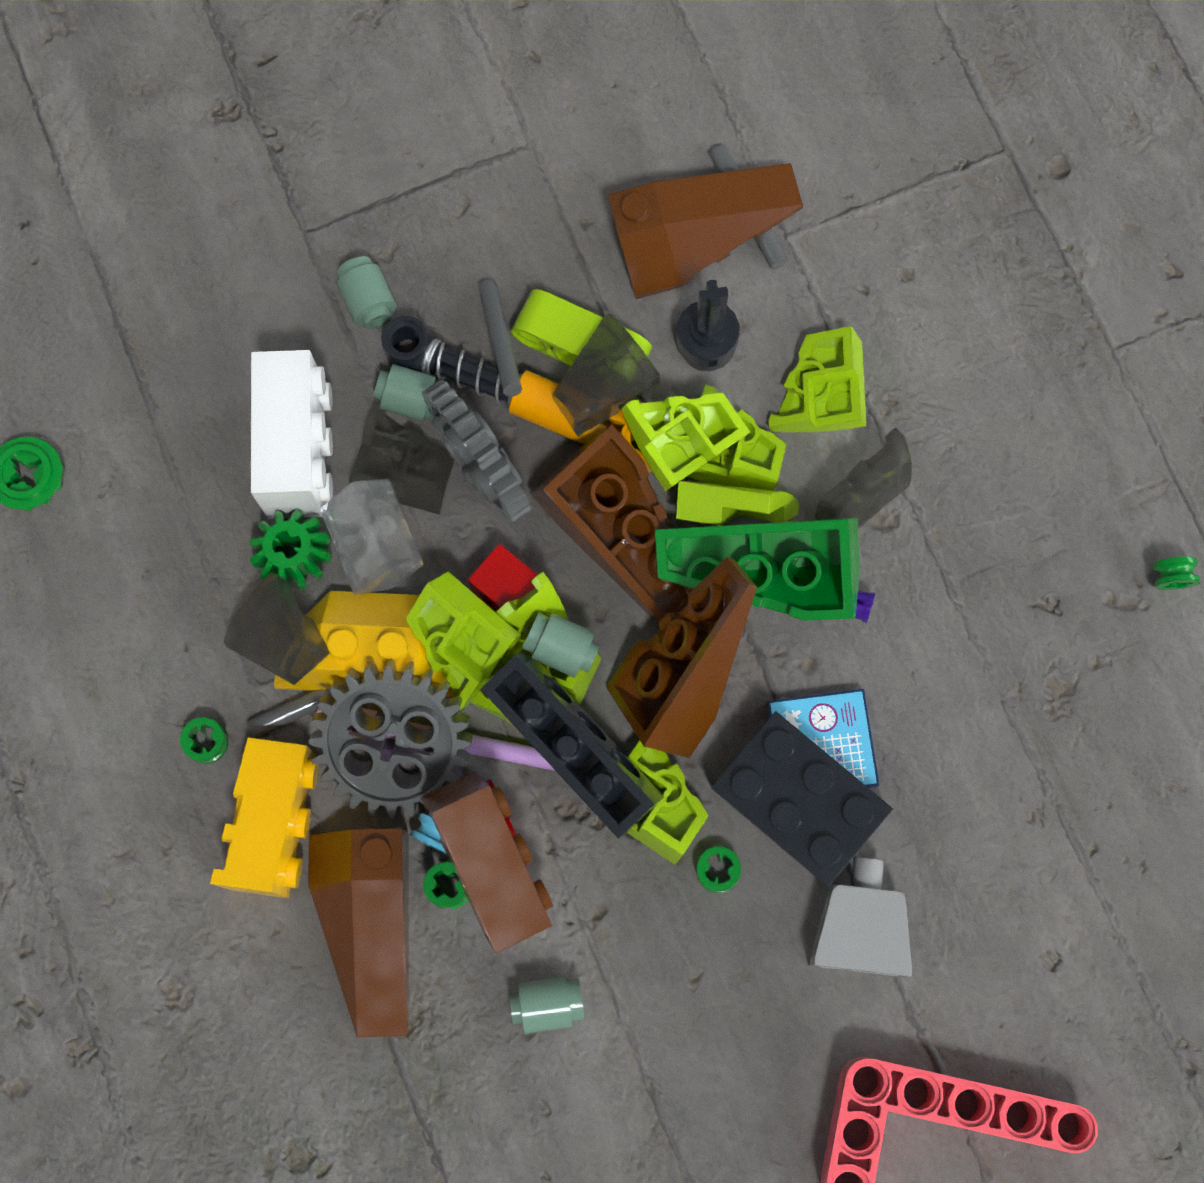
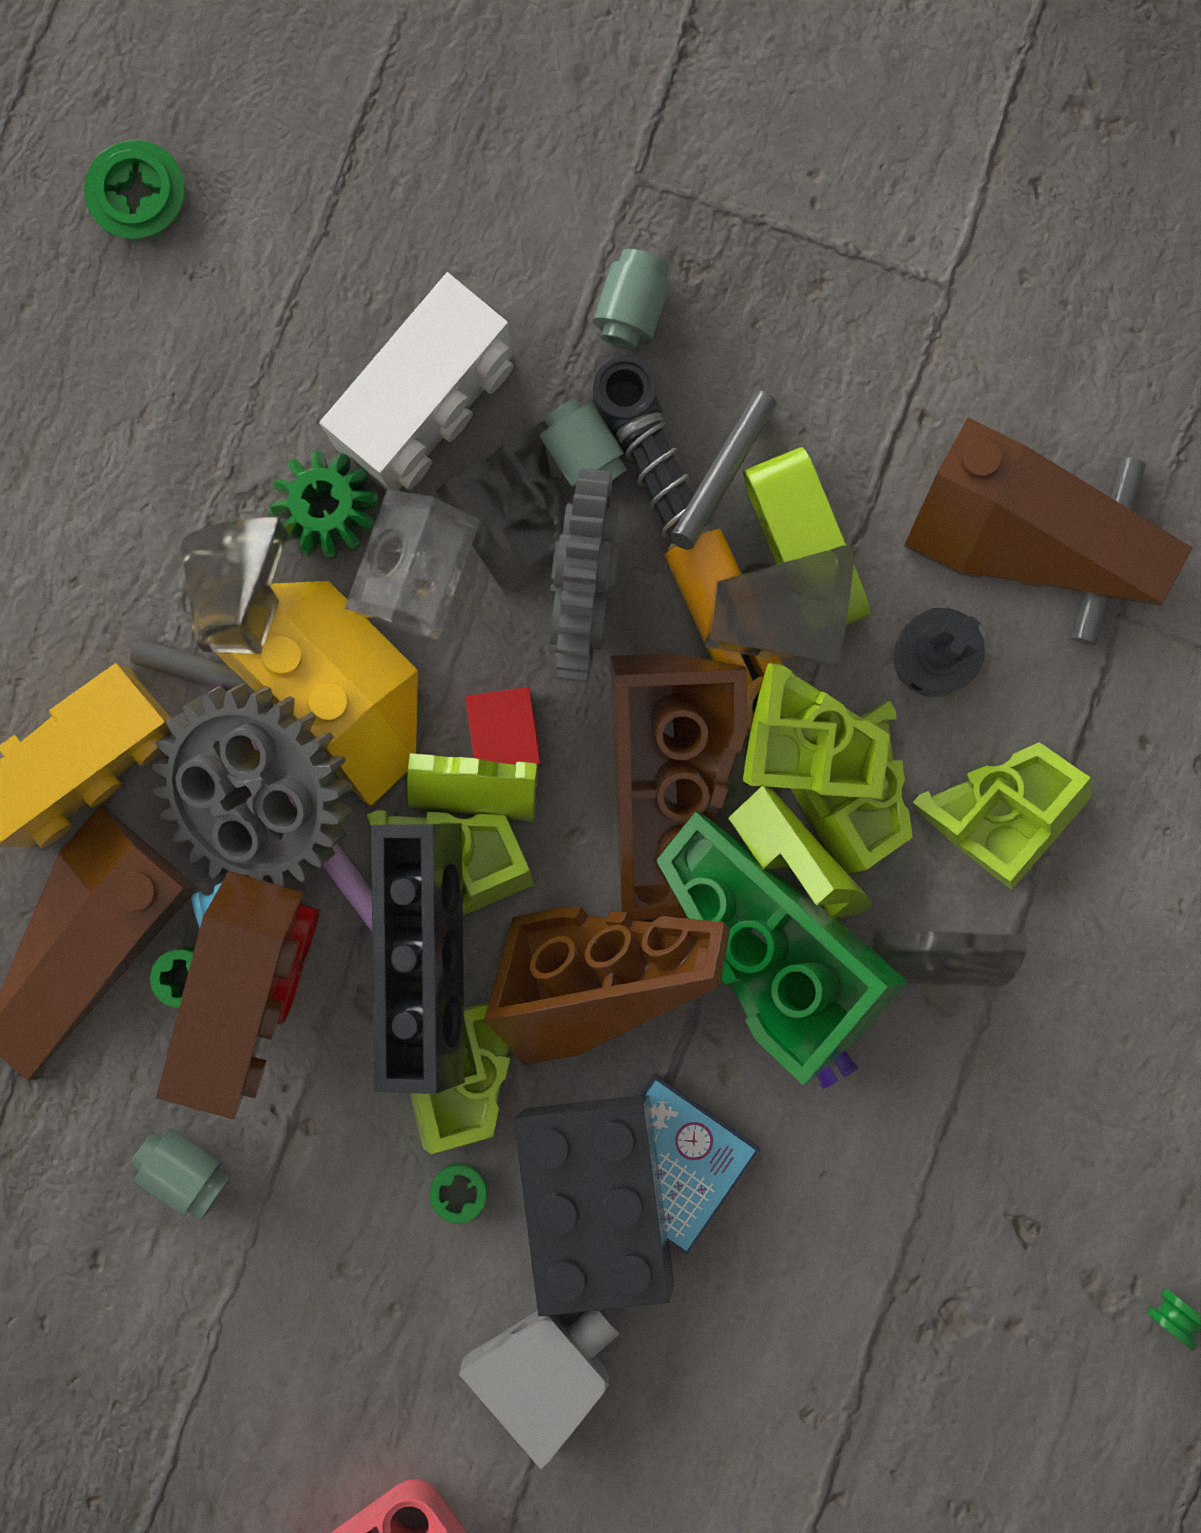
camera: 40 degrees right, 10 degrees up
(190, 746) = (63, 612): green bush -> none
(460, 635) = (405, 748): lime slope -> none
(561, 644) = (494, 847): sand green brick -> none

